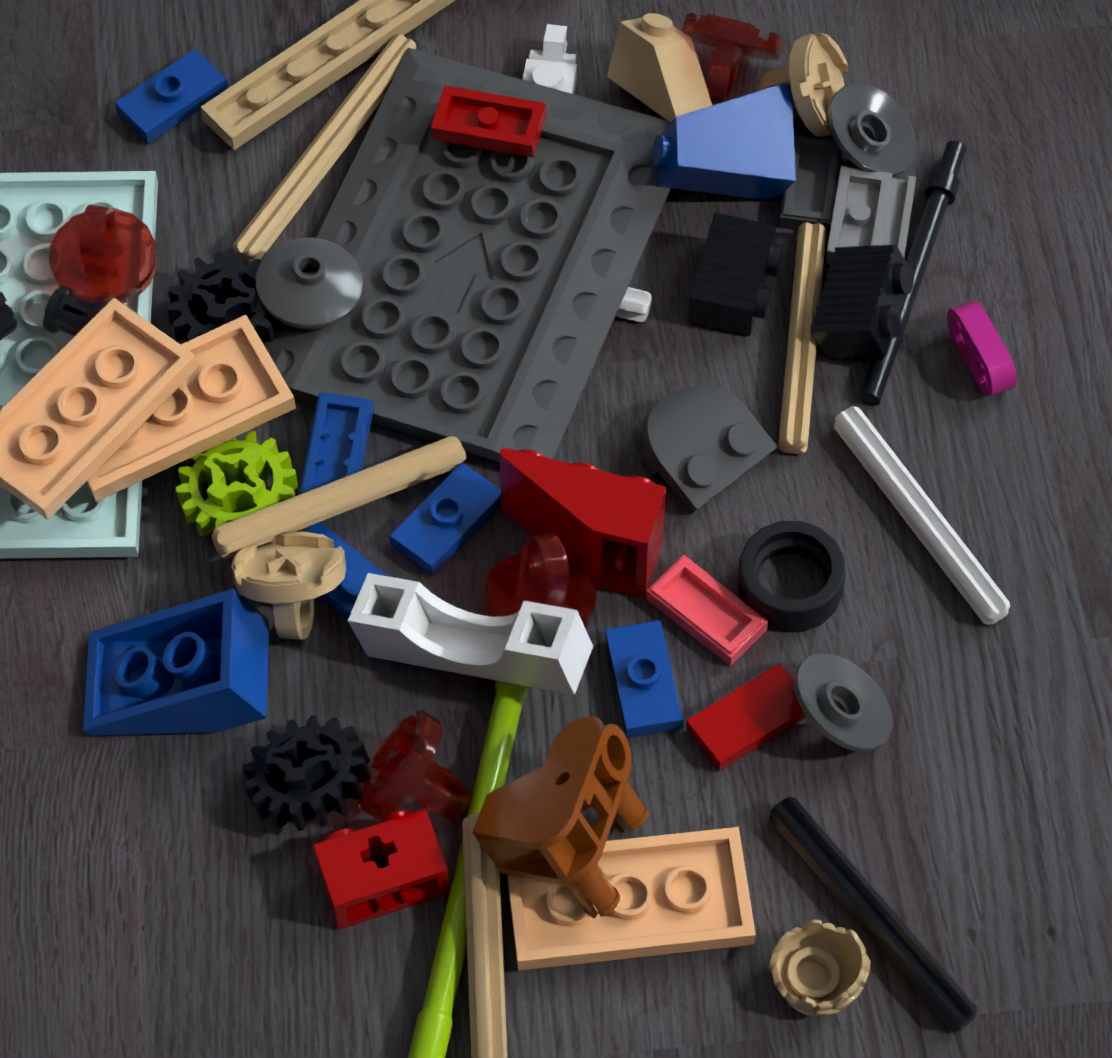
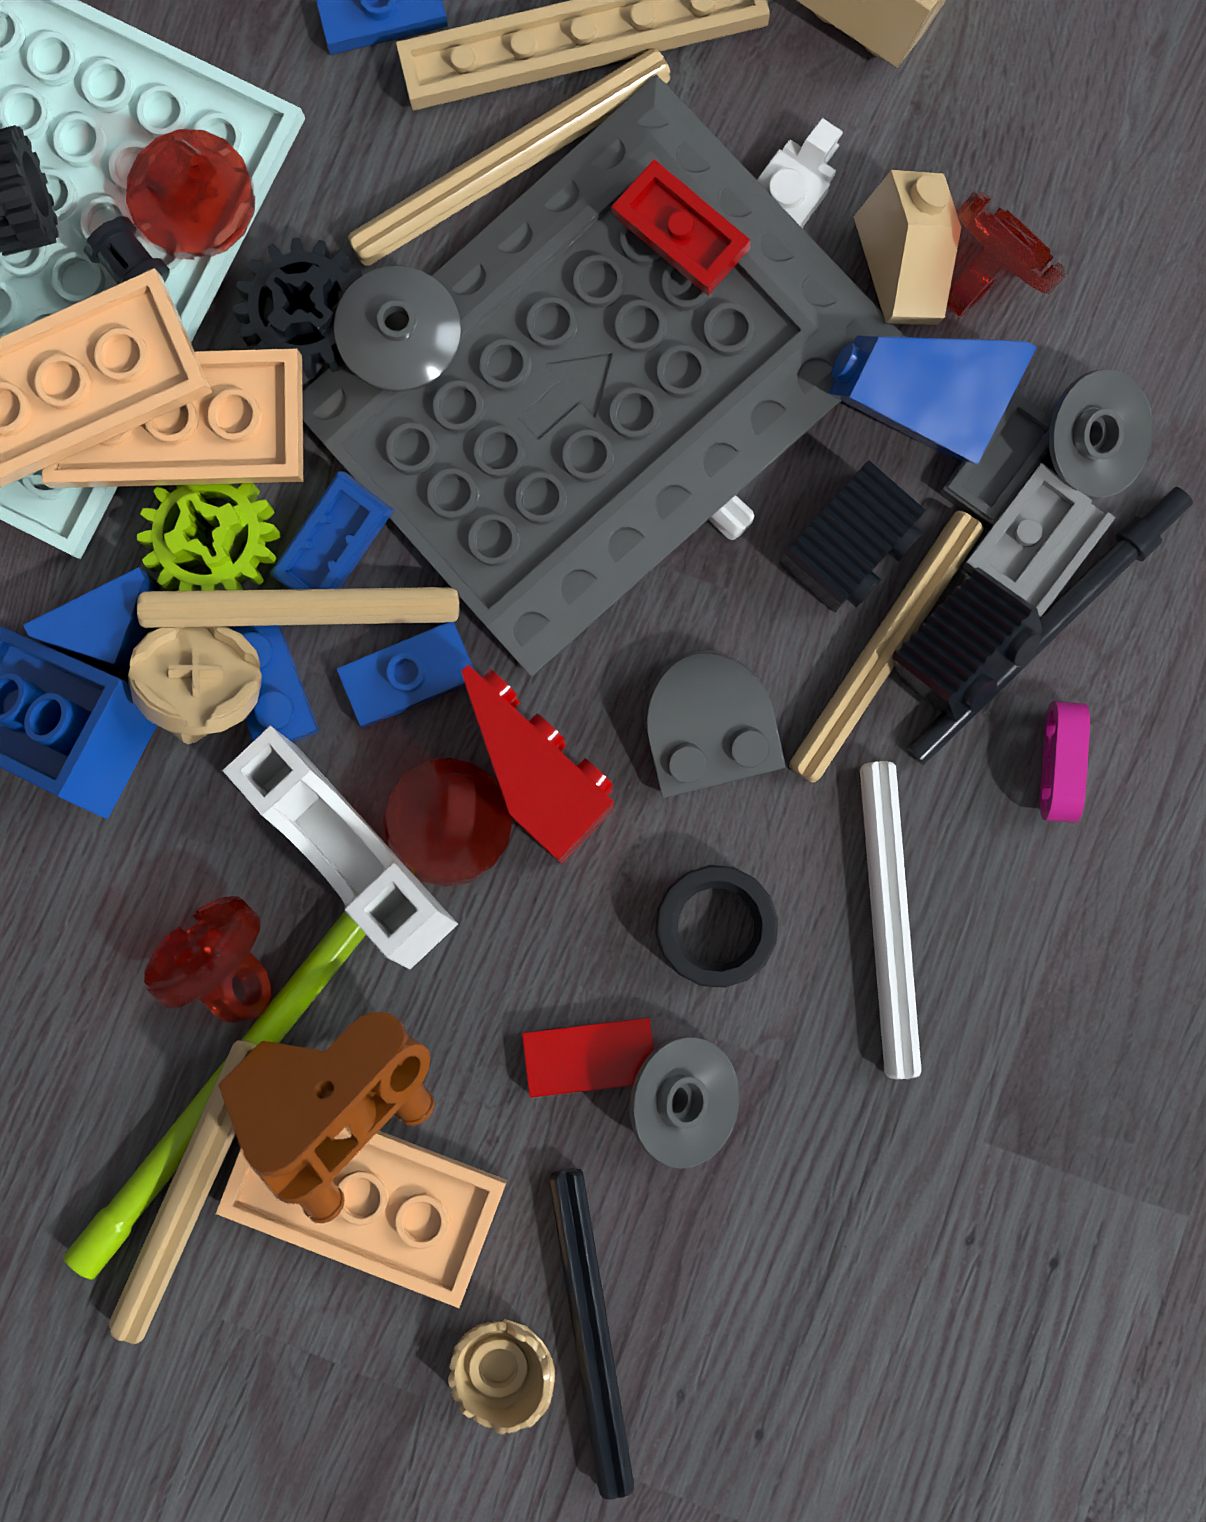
camera: 30 degrees right, 25 degrees up
(180, 577) = (99, 623): none -> blue slope
(306, 773) = (109, 932): black gear -> none
(360, 889) = (101, 1051): red brick -> none
(643, 679) = (507, 960): blue plate -> none
(707, 610) = (613, 914): coral tile -> none
(814, 78) = (1065, 344): tan tile -> none

